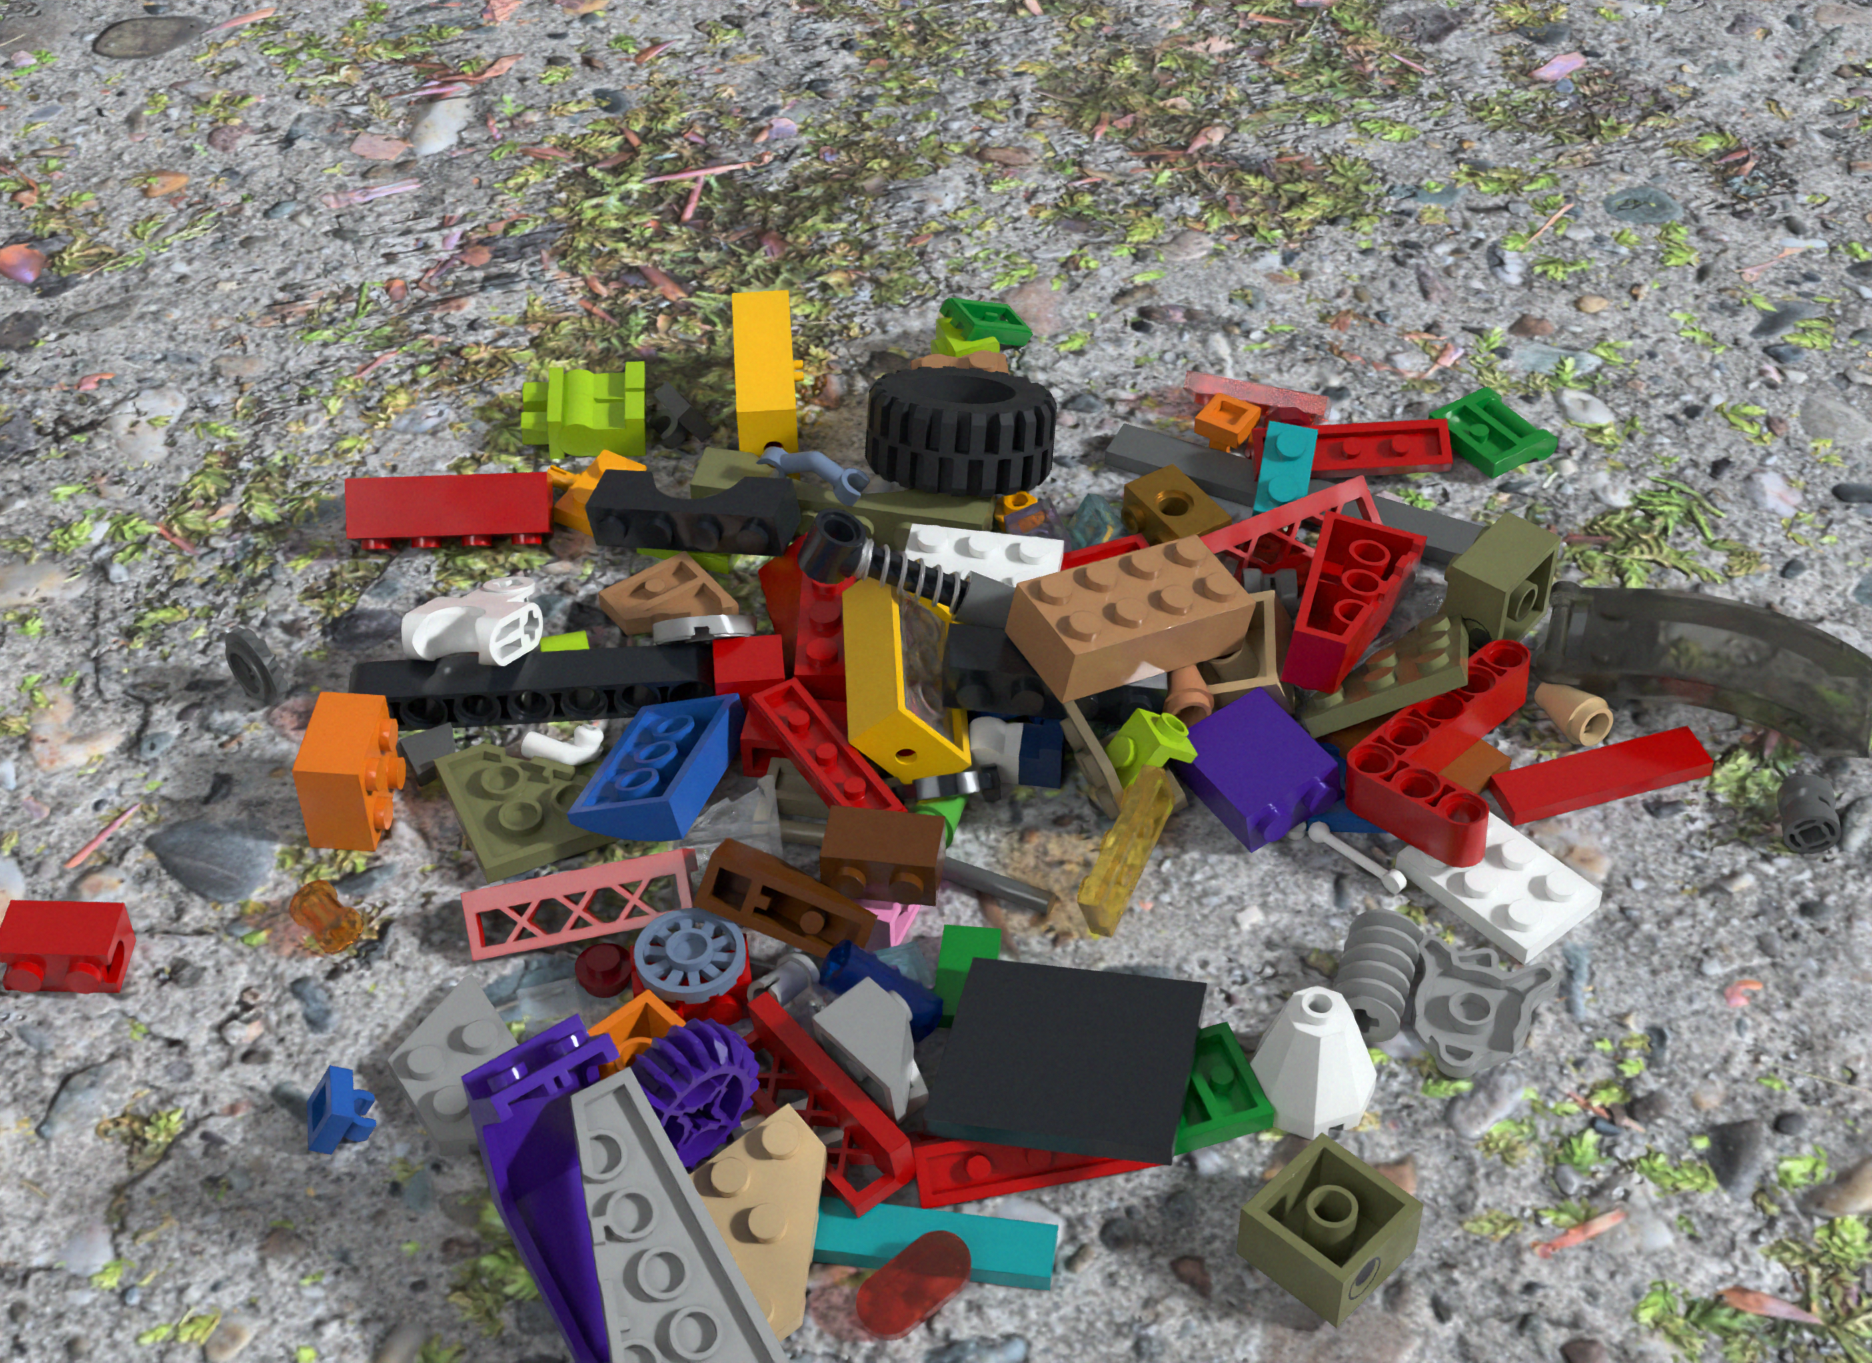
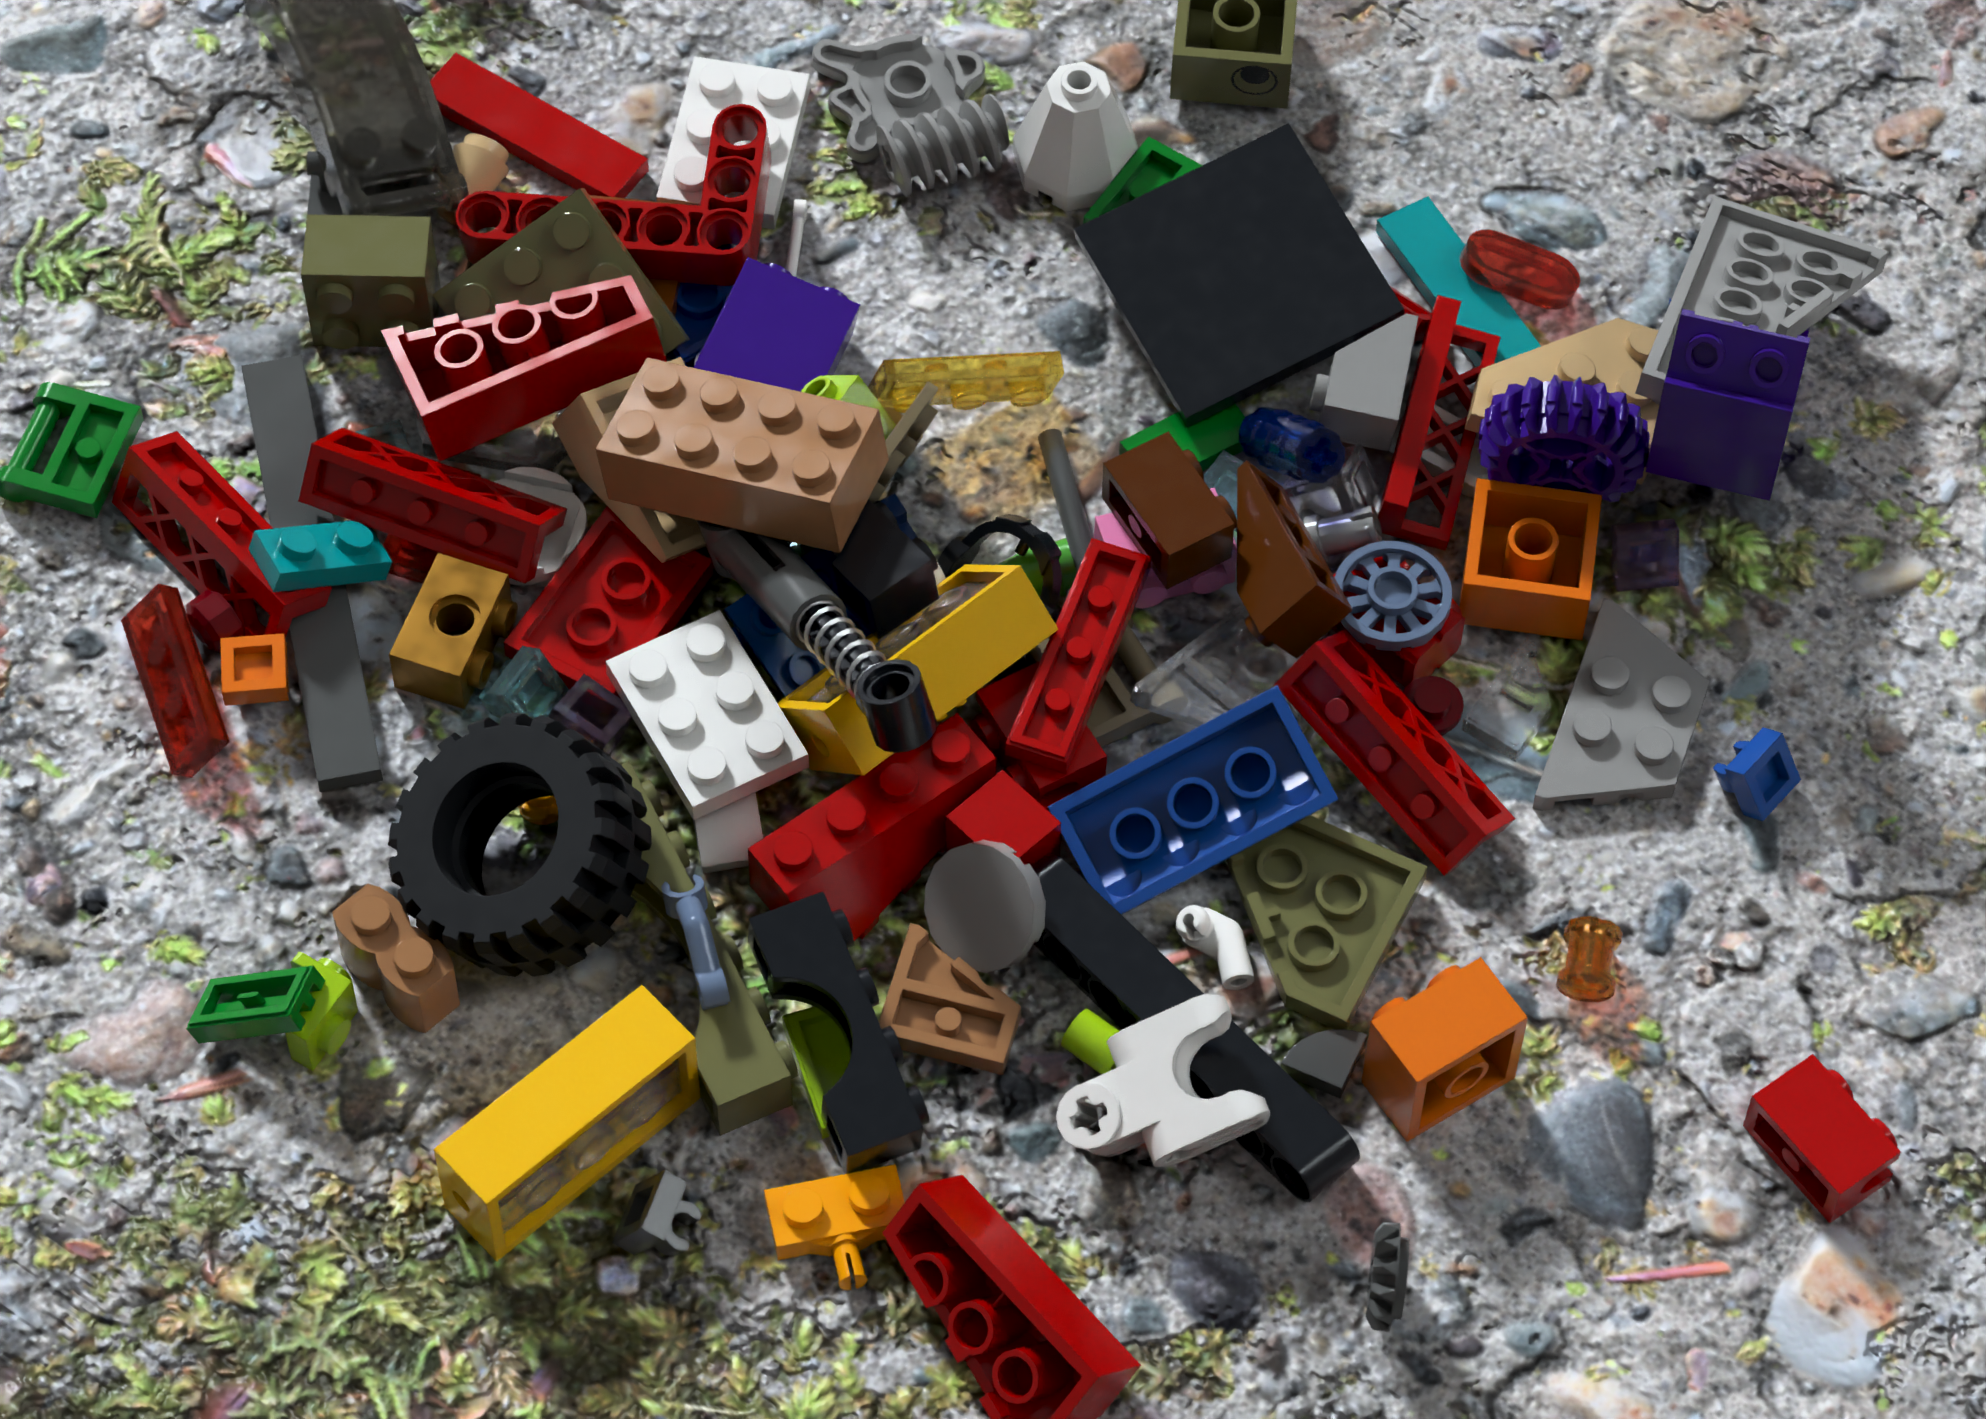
camera: 130 degrees left, 15 degrees up
(587, 412) = (724, 1313): lime hips -> none
(1282, 581) = (535, 448): dark grey wheel -> none

